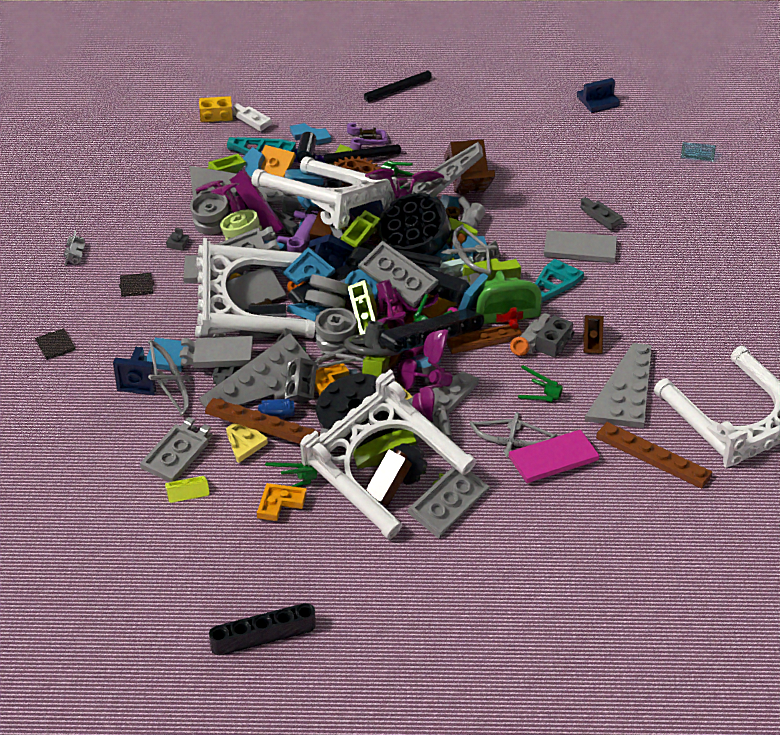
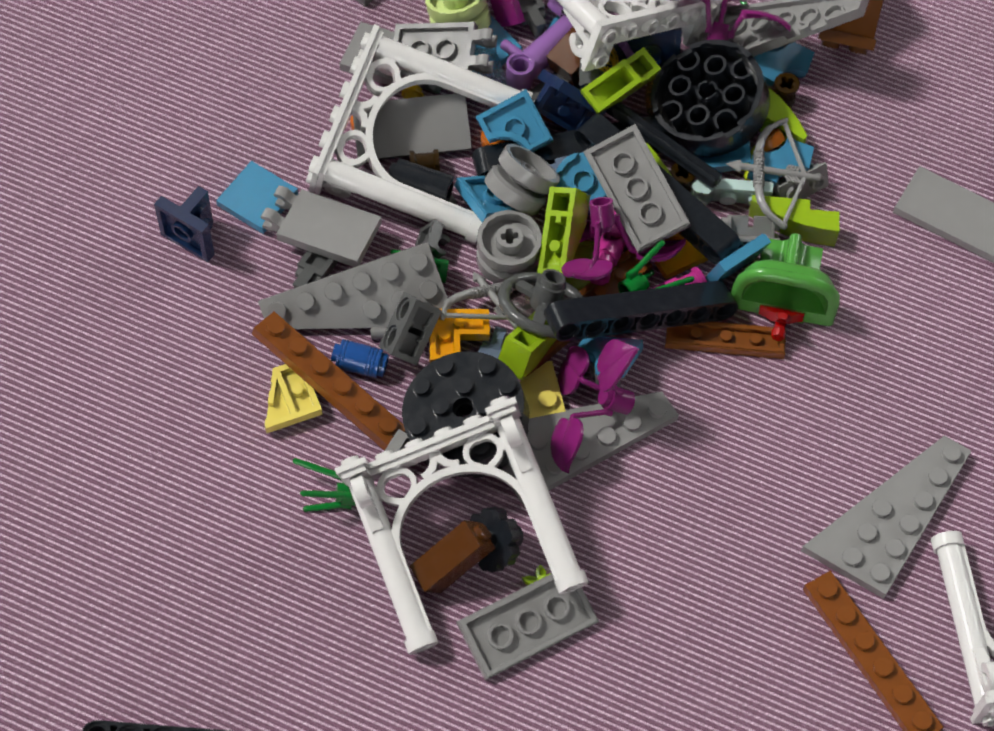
camera: 20 degrees right, 20 degrees up
(55, 344) = (112, 117): clear smoke piece -> none
(136, 284) = (271, 48): clear smoke piece -> none
(162, 378) = (218, 250): light grey piece -> none
(177, 450) = (191, 379): light grey tile -> none
(187, 489) = (176, 450): neon yellow slope -> none
(277, 496) = (287, 518): light orange plate -> none
(375, 450) = (474, 492): lime slope -> none
(441, 421) = (578, 488): light grey hinge -> none
(472, 213) = (817, 99): light grey piece -> none
(510, 441) = (689, 522): light grey piece -> none
(520, 346) = (768, 377): orange tile -> none
(533, 329) = (803, 360): light grey hinge -> none
(552, 388) = (777, 478): green plant -> none
(553, 456) = (719, 603): dark pink tile -> none
(554, 336) = (825, 374): dark grey brick -> none
(561, 271) = (904, 254): teal plate -> none
(593, 333) = (890, 396): reddish brown slope -> none

